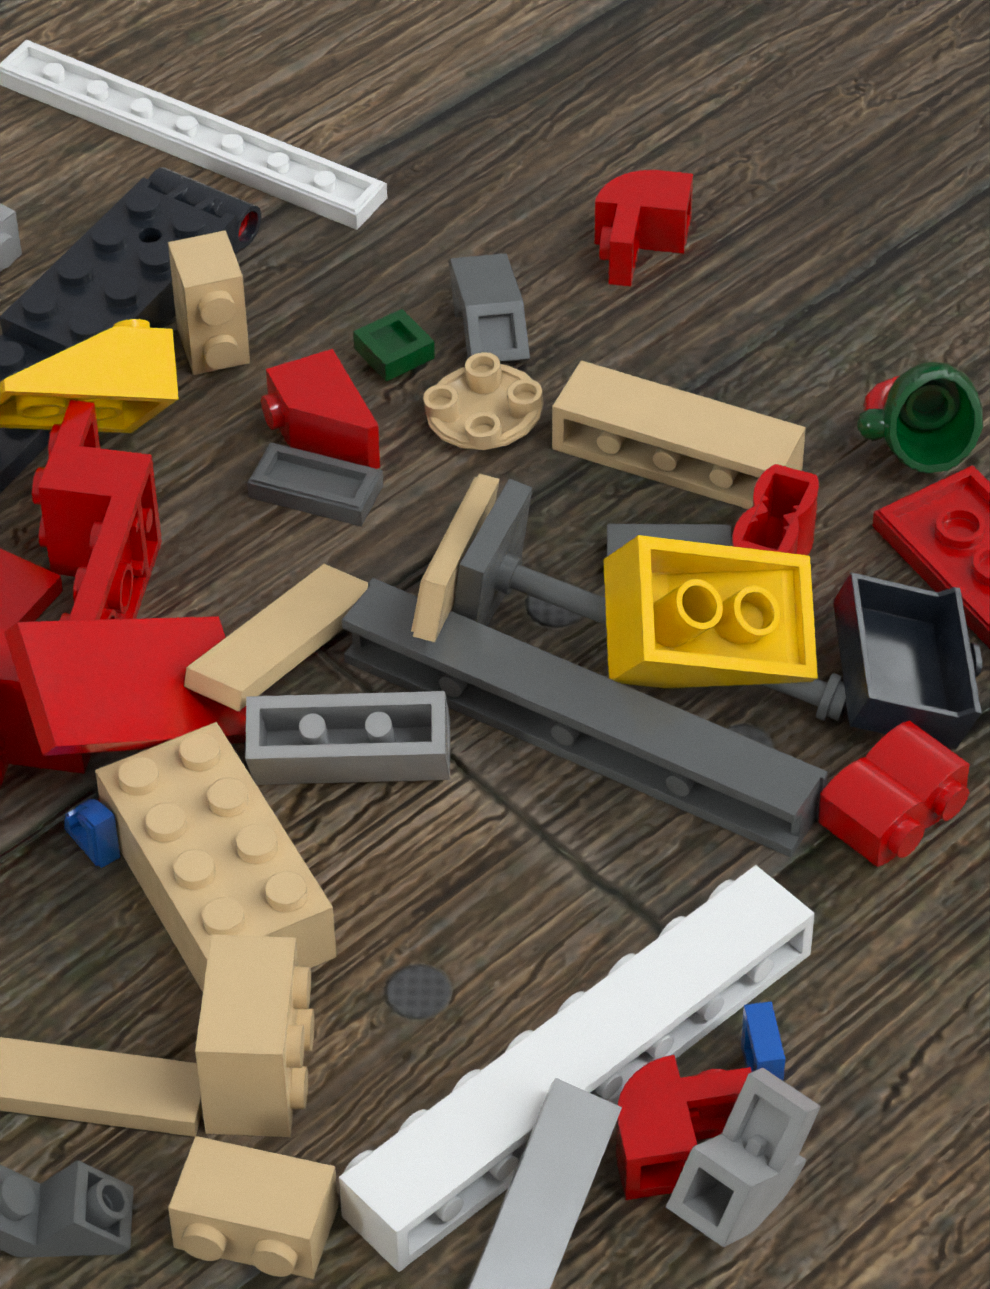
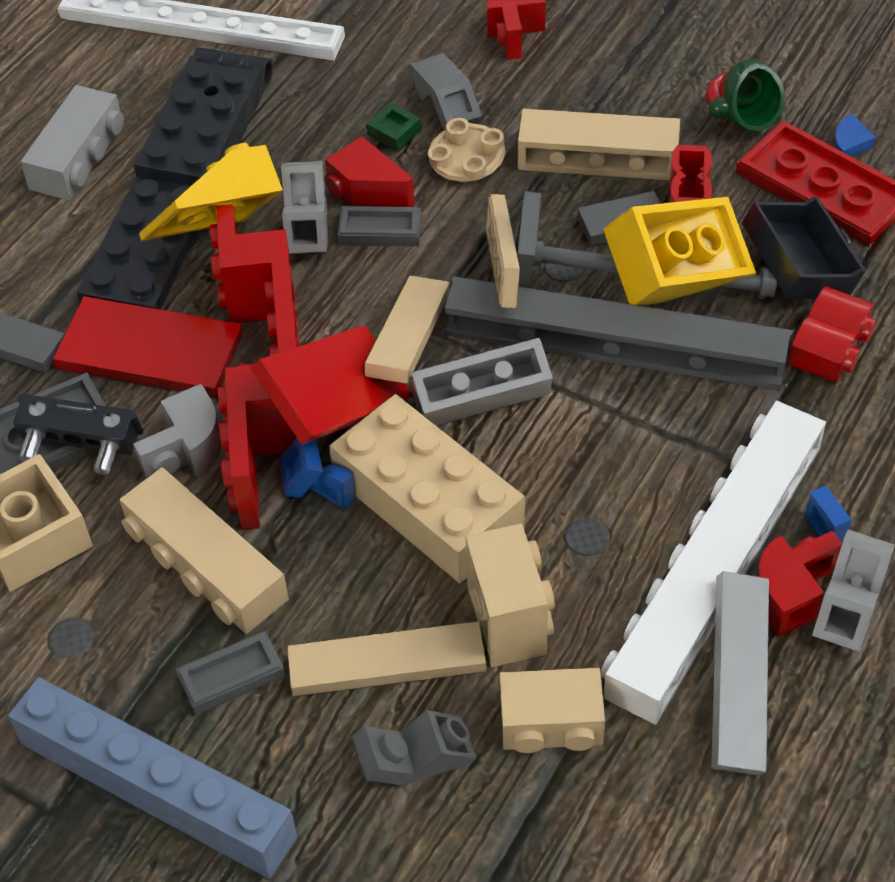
camera: 15 degrees left, 5 degrees up
(54, 792) = (300, 467): none -> blue tile
(209, 302) = (270, 120): tan brick -> none
(215, 440) = (305, 206): none -> light grey brick

